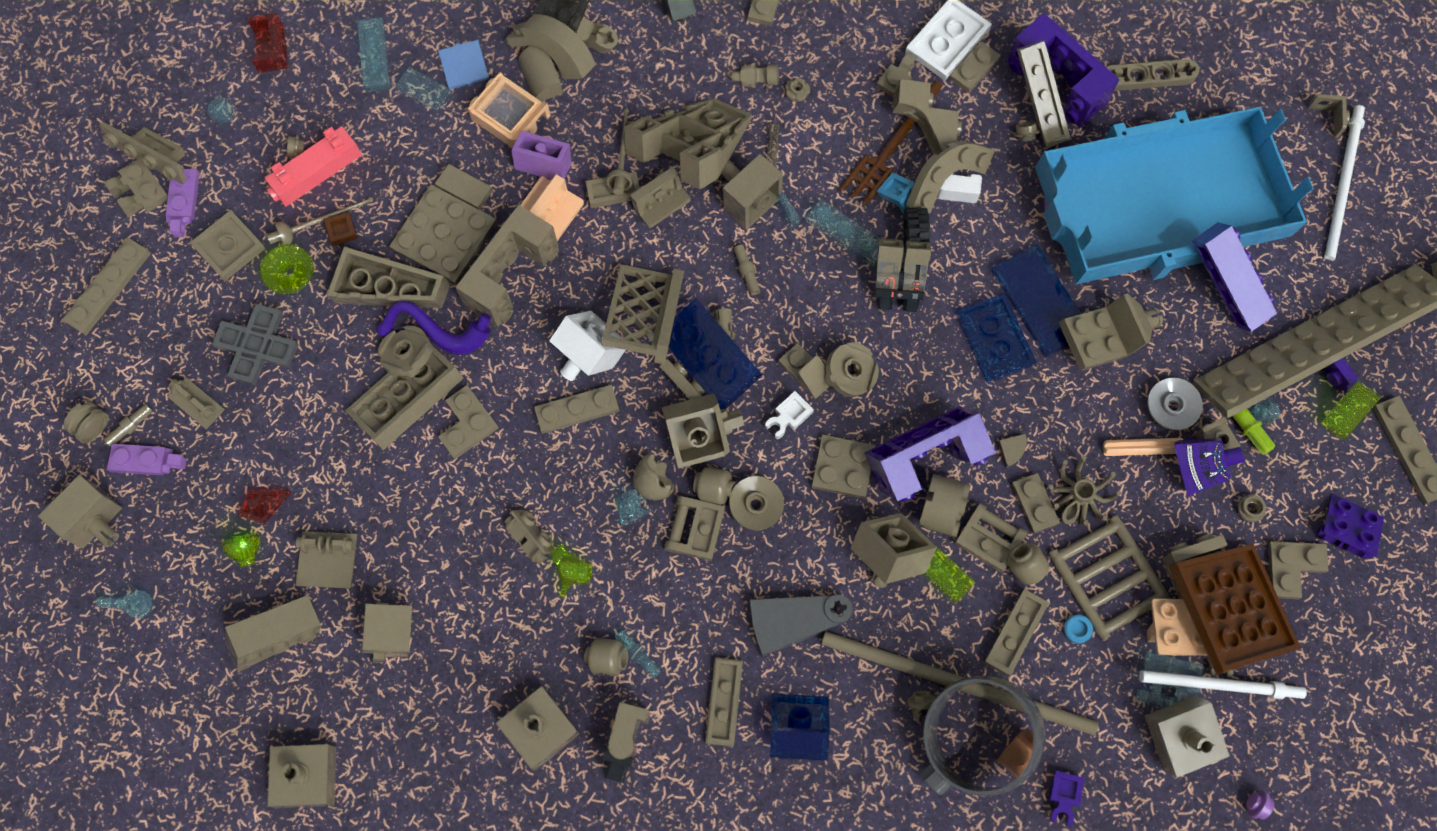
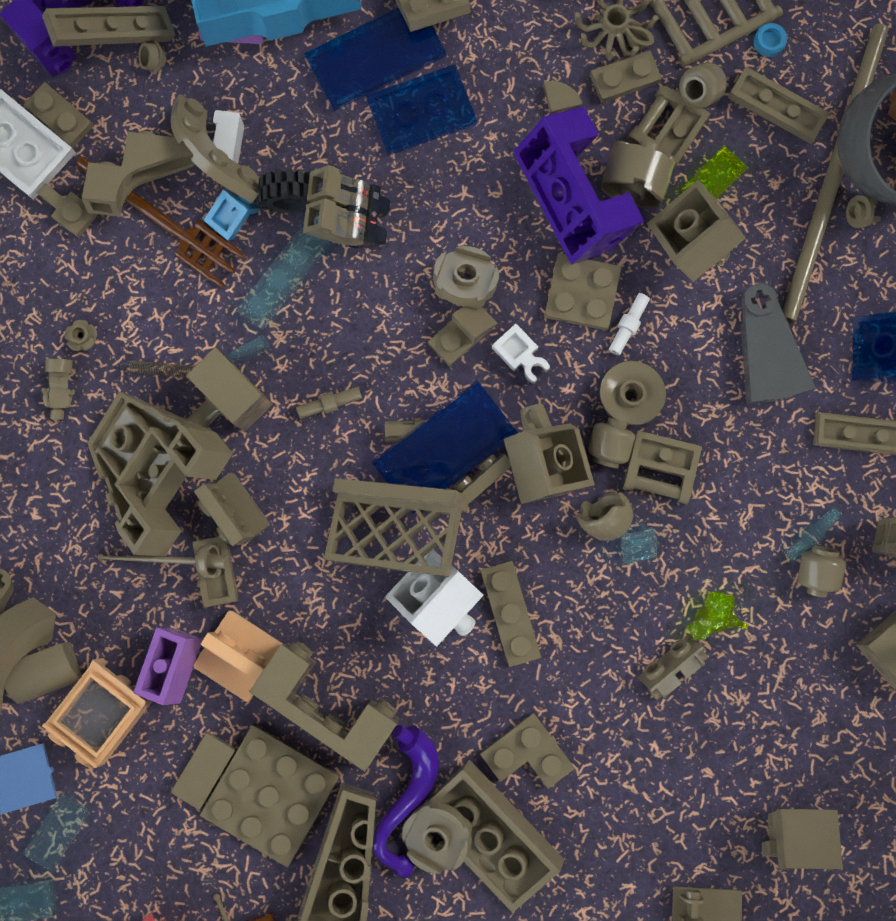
camera: 90 degrees left, 10 degrees up
(816, 503) = (629, 324): none -> white bar

